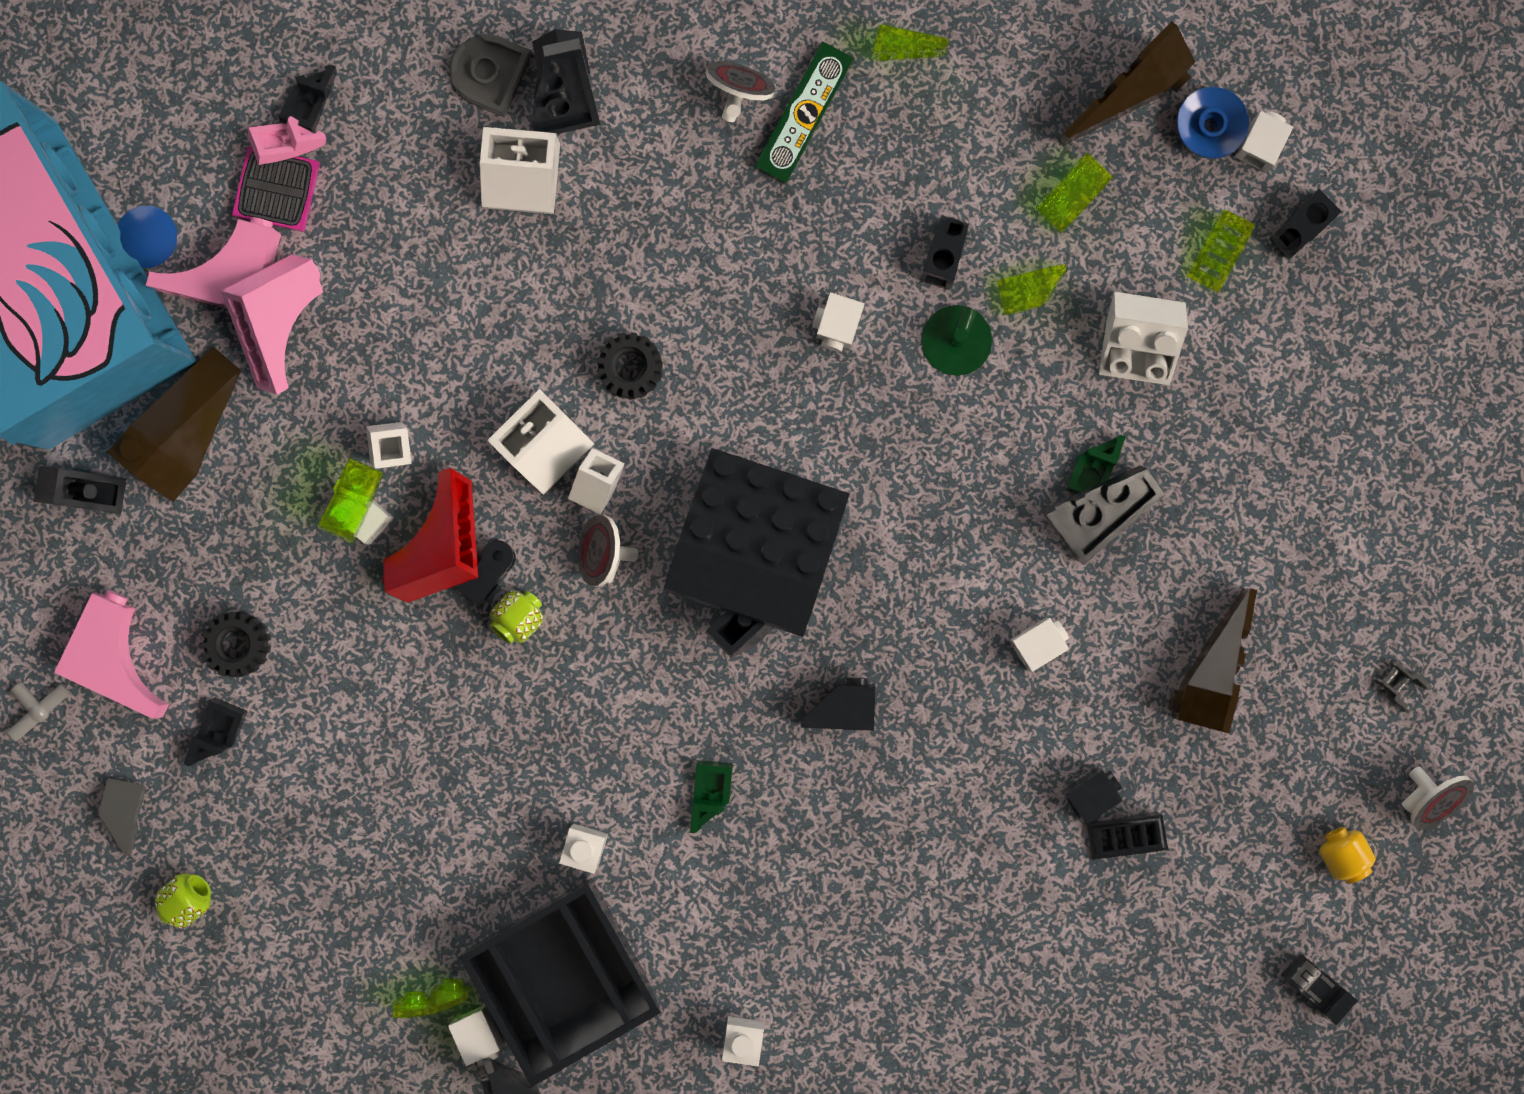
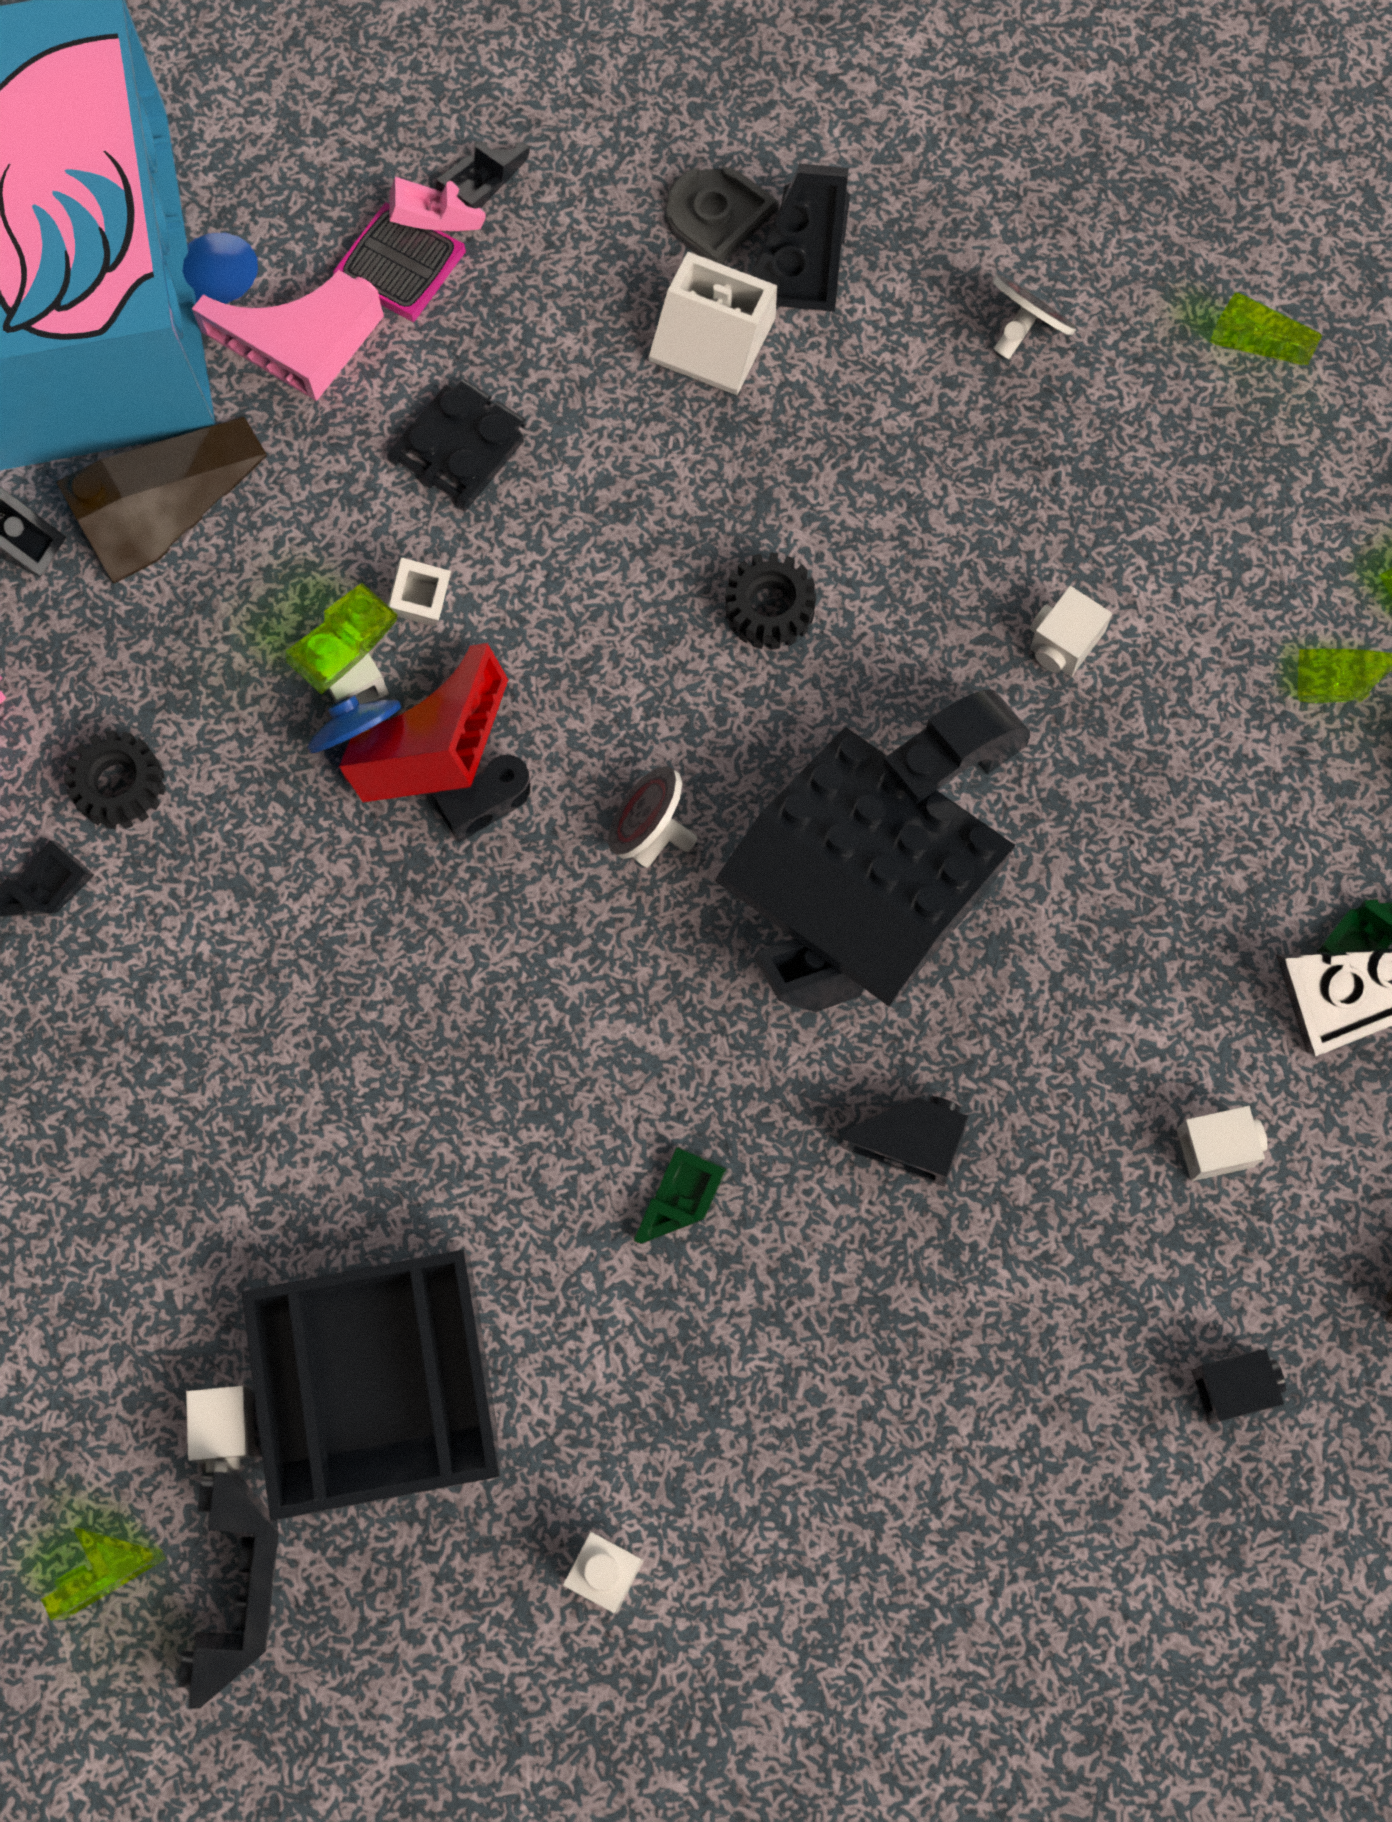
camera: 20 degrees right, 15 degrees down
(265, 311) = (323, 383): bright pink arch -> none
(373, 315) = (460, 441): none -> black plate
(381, 556) = (349, 720): none -> blue dish
(443, 996) = (191, 1353): clear neon green slope -> none
(516, 616) = (501, 866): lime head -> none
(541, 442) = (619, 652): white slope -> none
(583, 848) = (475, 1207): white brick -> none
(590, 486) = (673, 724): white brick -> none
(790, 439) = (964, 733): none -> black arch
(804, 113) = (1102, 375): tile -> none
(945, 253) = (1236, 594): black leg -> none
(957, 340) = (1221, 710): dark green shield -> none
(1158, 830) = (1323, 1476): black slope -> none

